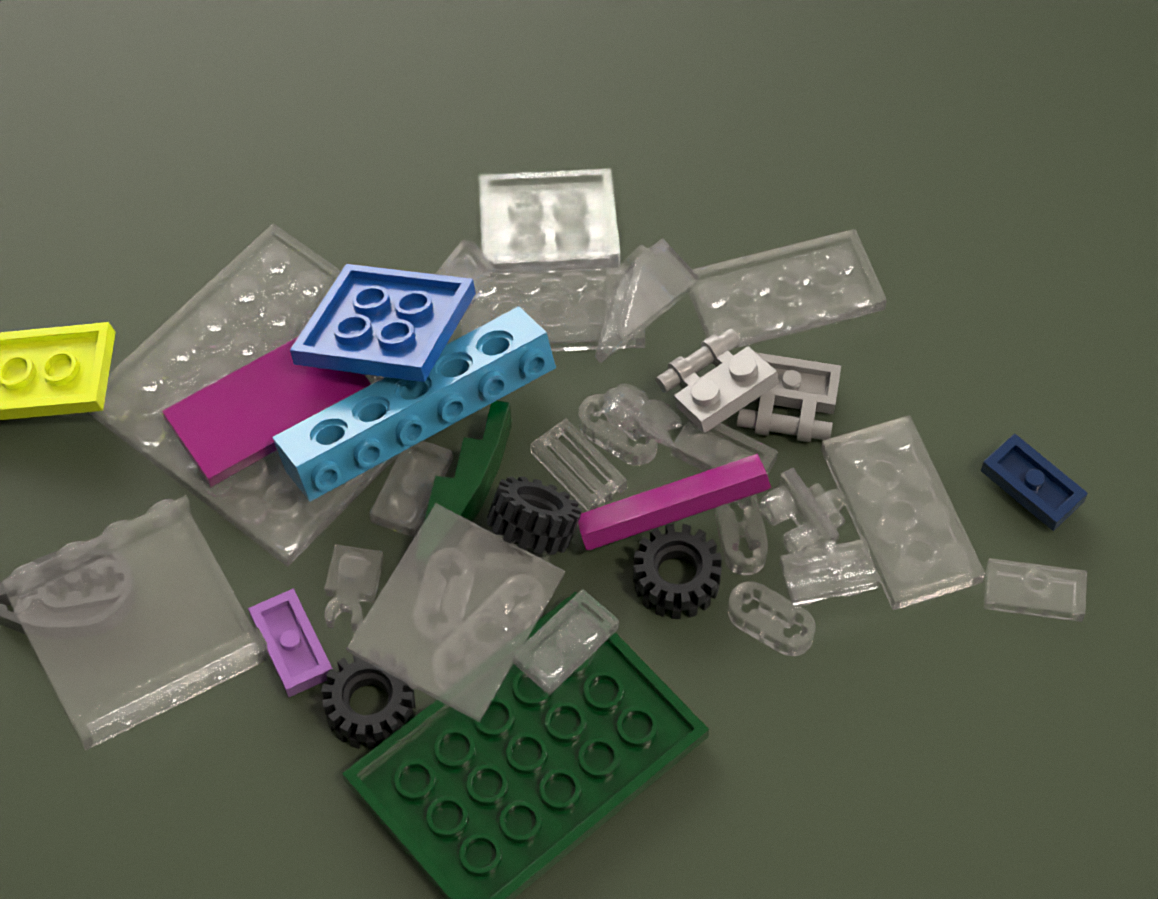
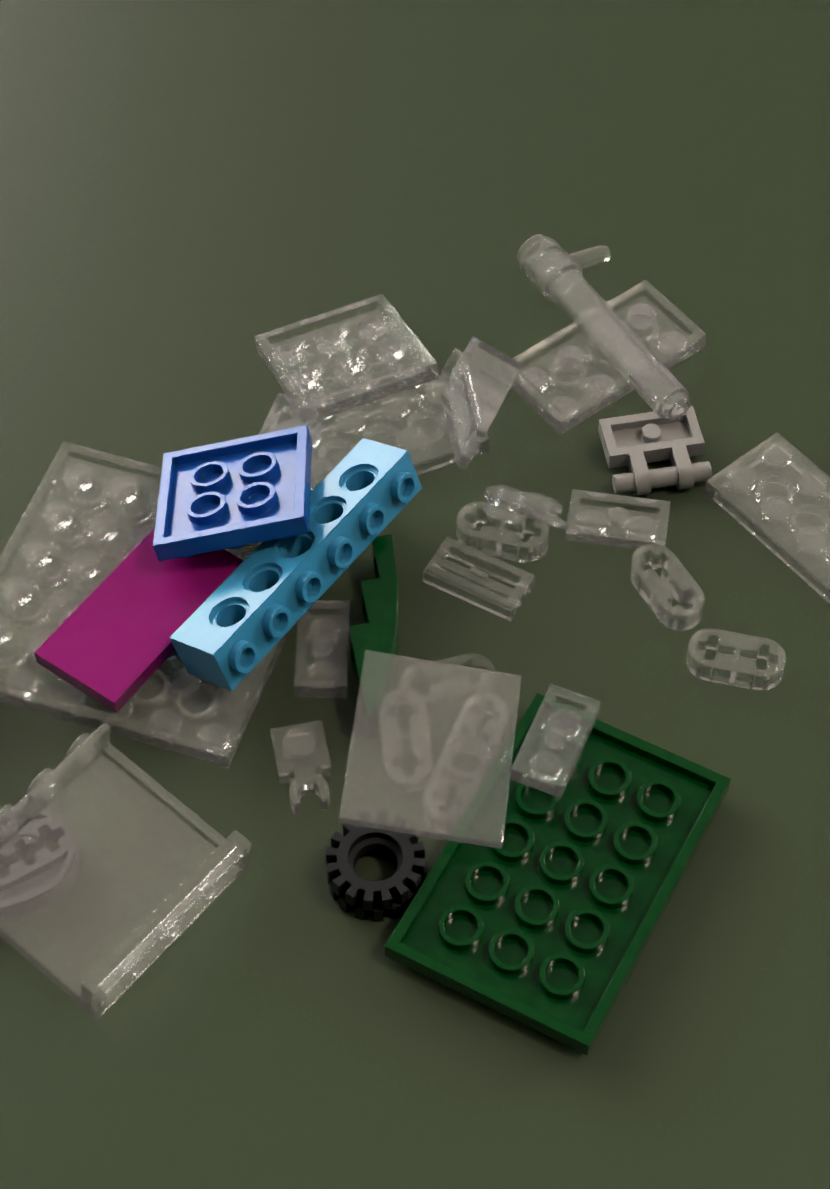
camera: 20 degrees left, 5 degrees down
(291, 642) = (278, 843): medium lavender plate -> none
(533, 515) = (464, 633): black tyre -> none
(673, 502) = (594, 578): magenta tile -> none
(681, 546) = (620, 667): black tyre -> none
(722, 390) = (594, 459): light grey plate -> none
(772, 207) = (561, 280): none -> clear cylinder
(811, 509) = (727, 548): clear hips -> none
(829, 572) = (773, 595): clear hips -> none

